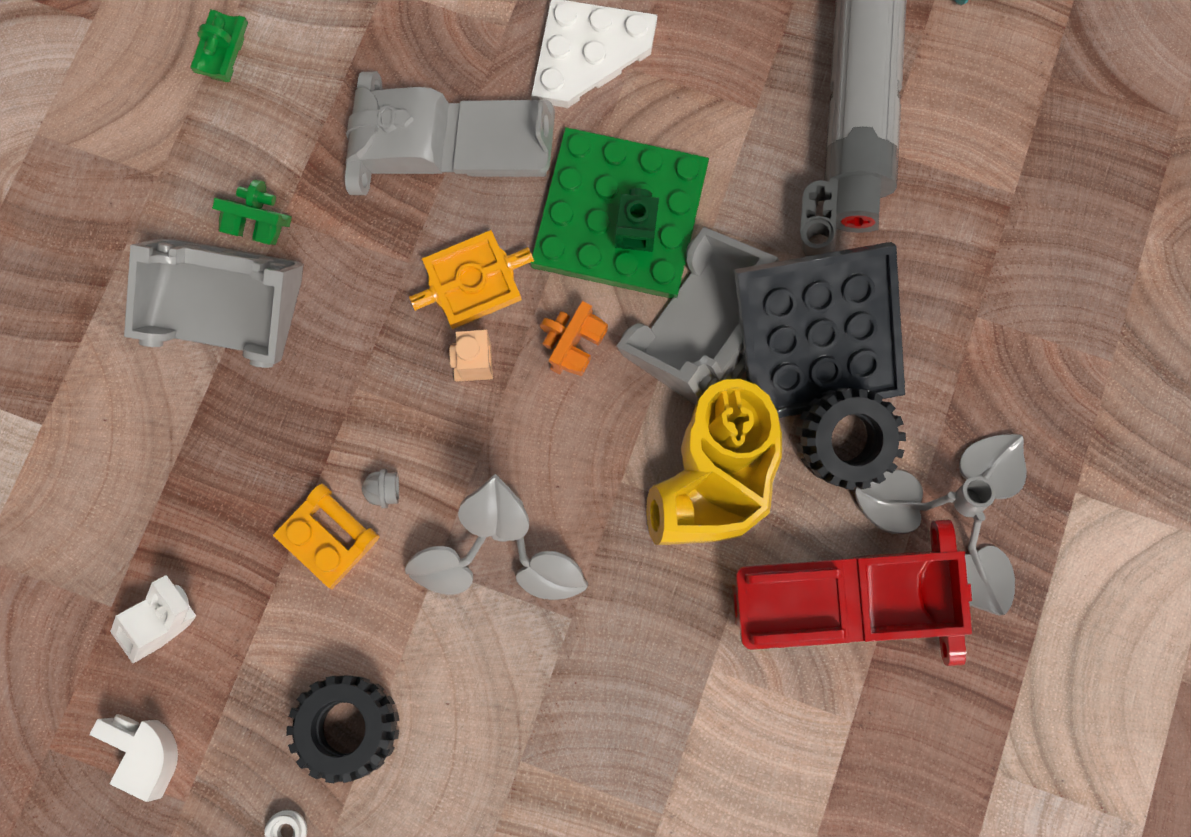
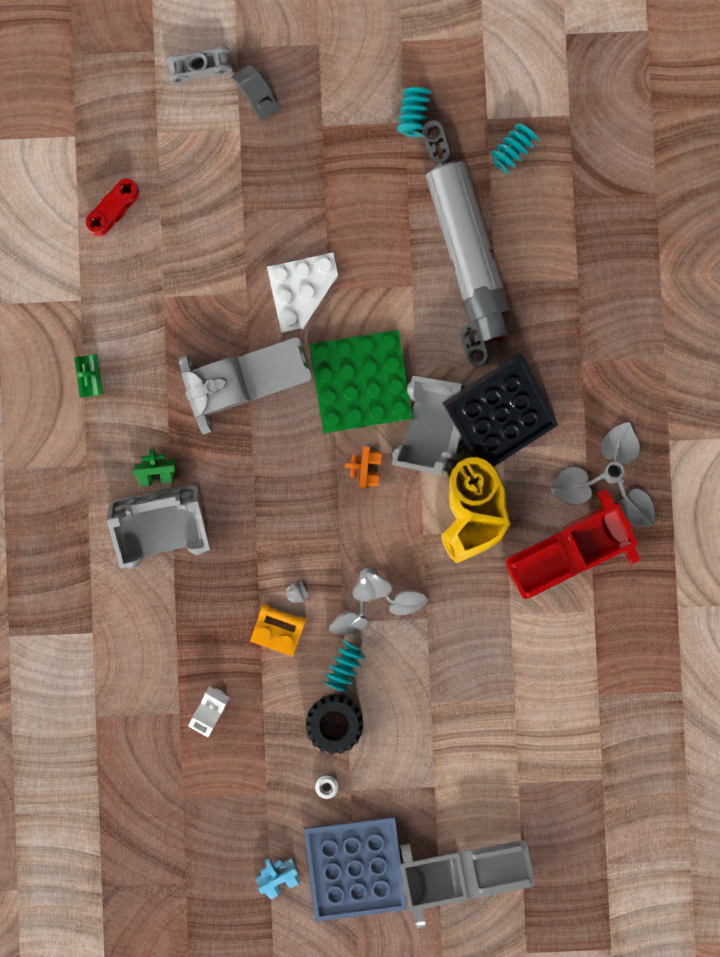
camera: 25 degrees left, 10 degrees up
(148, 758) = (240, 778): white brick -> none
(402, 640) = (344, 667): none -> teal piece
(471, 279) = (294, 455): light orange plate -> none
(471, 356) = (314, 500): light nougat brick -> none
(636, 232) = (374, 396): dark green brick -> none
(881, 442) = (550, 476): black tyre -> none

